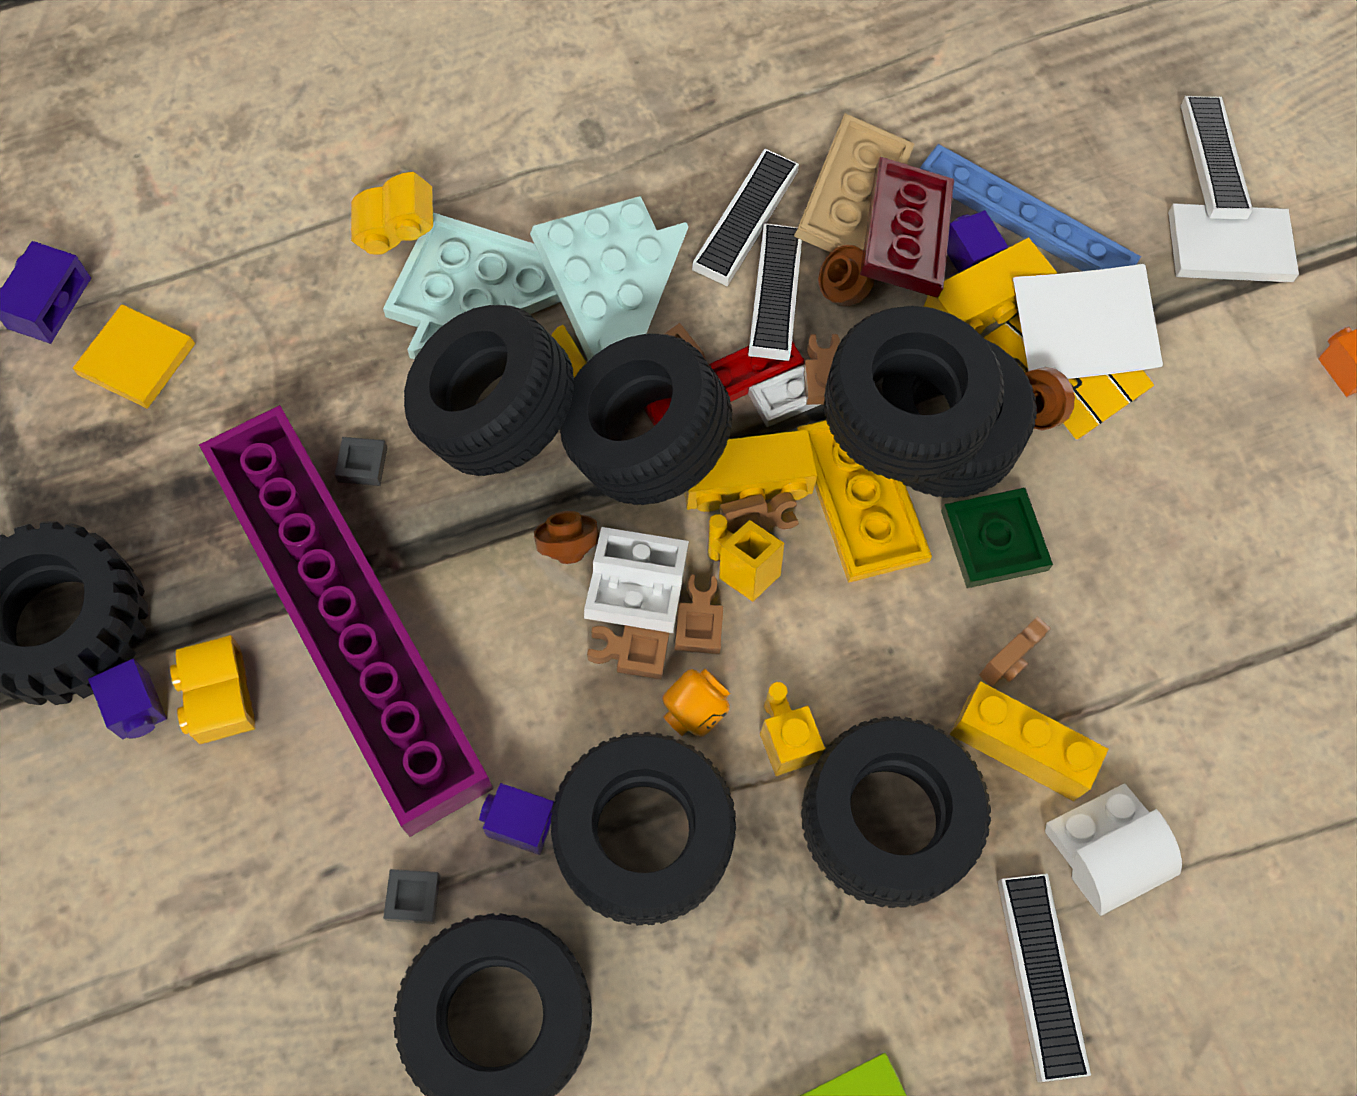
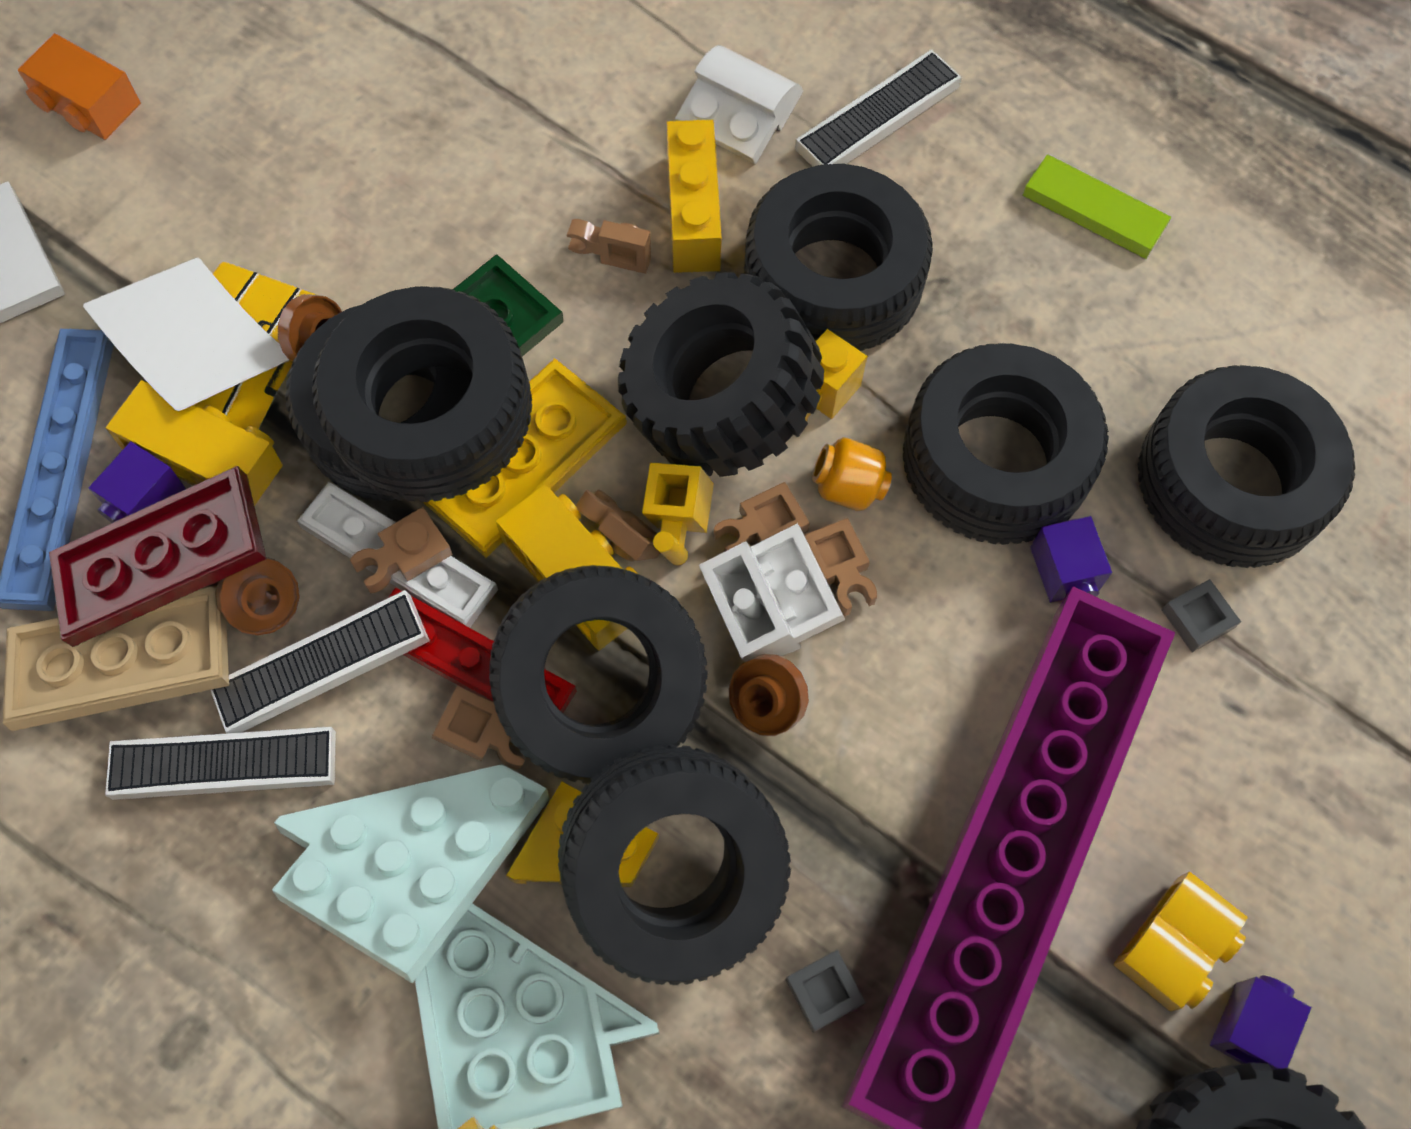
camera: 120 degrees left, 0 degrees up
(805, 669) = (691, 334): none -> black tyre

